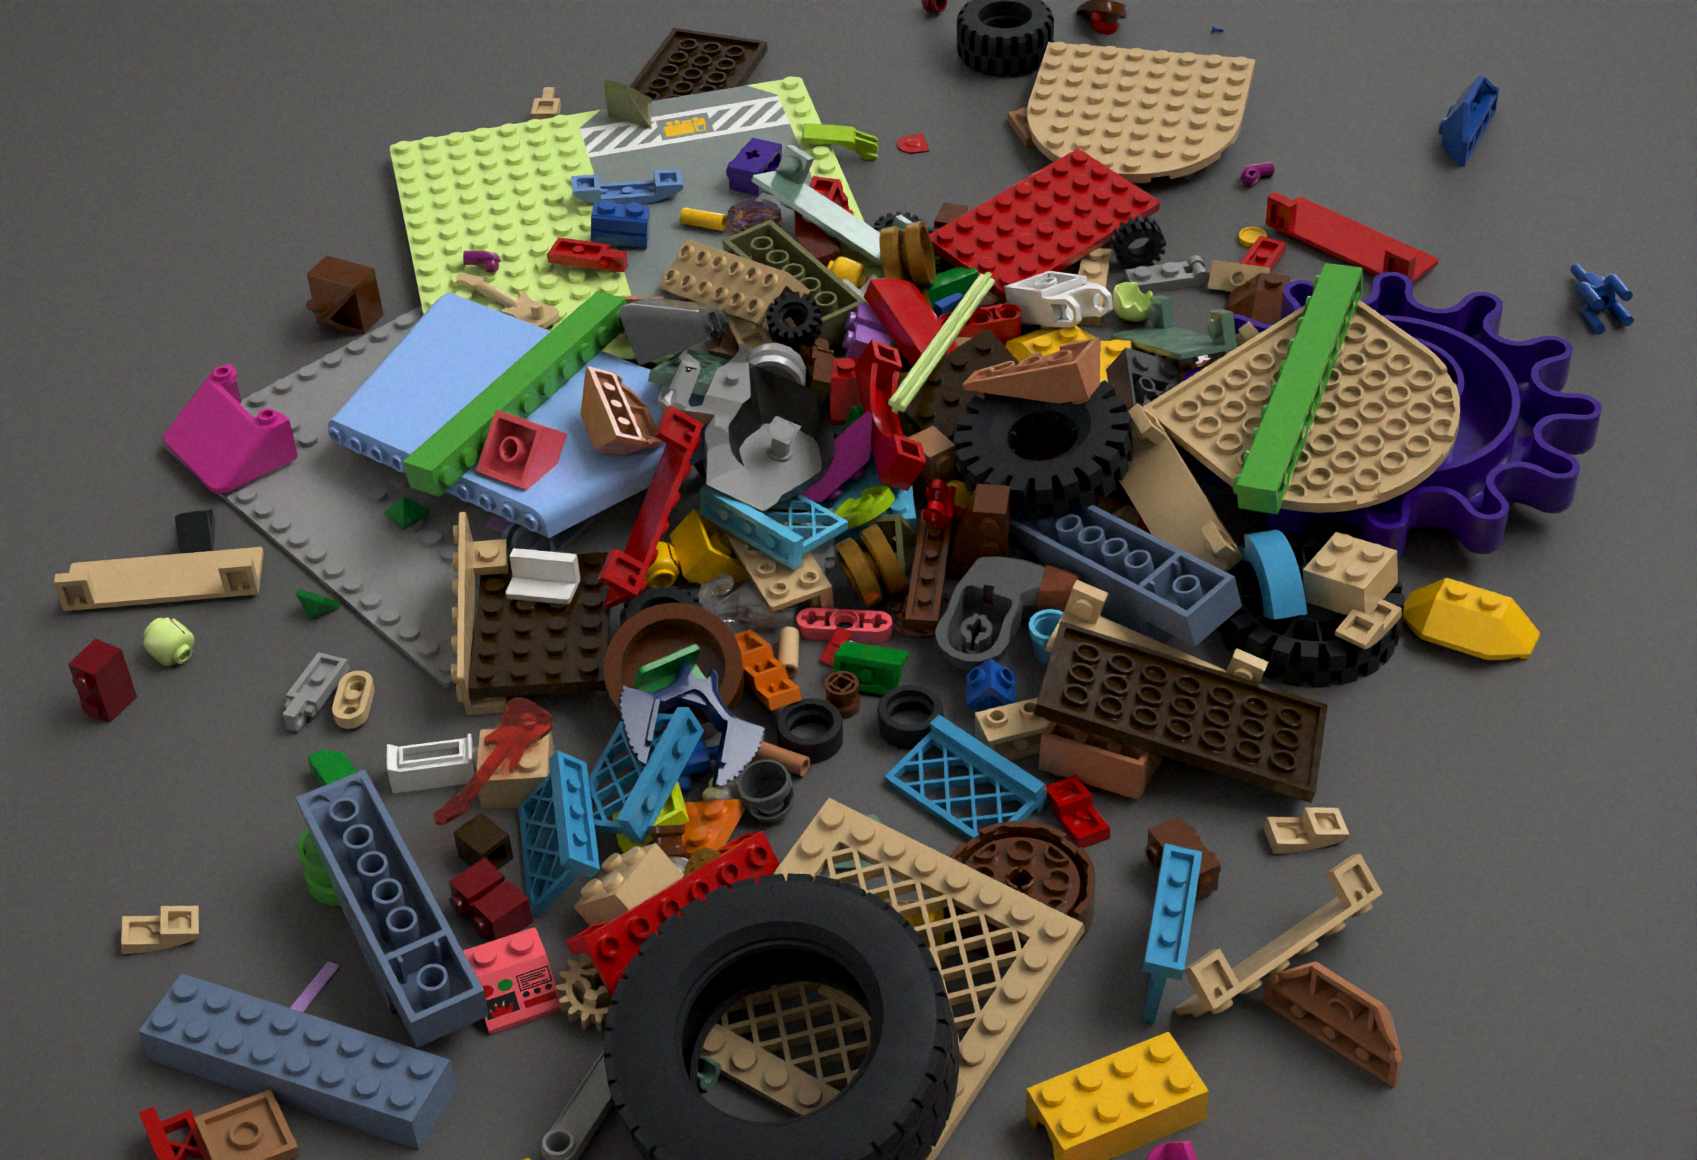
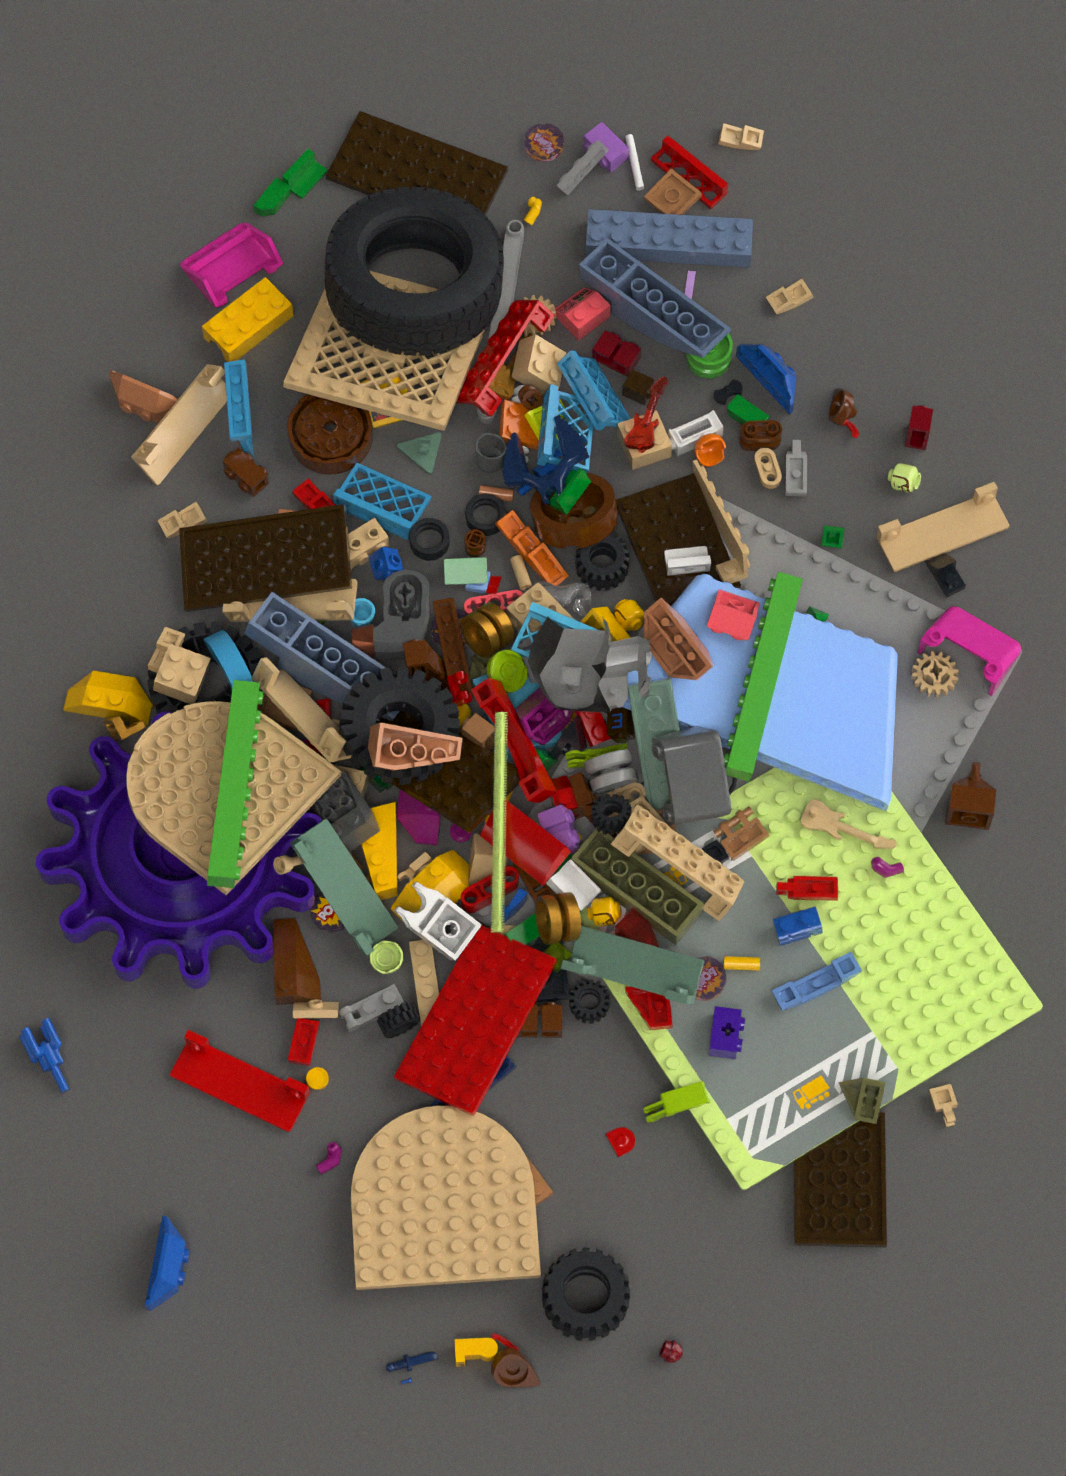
camera: 160 degrees right, 25 degrees up
(192, 744) = (842, 409): none -> reddish brown piece
(262, 815) = (770, 372): none -> blue wedge
(304, 414) = (927, 679): none -> tan gear
(338, 731) = (760, 435): none -> reddish brown brick
(423, 730) = (709, 449): none -> orange hair
(627, 570) = (627, 586): red bracket -> none
(1138, 28) = (475, 1348): none -> yellow leg
(1211, 35) = (411, 1361): none -> dark blue piece
(1460, 524) = (118, 730): none -> pearl gold fence

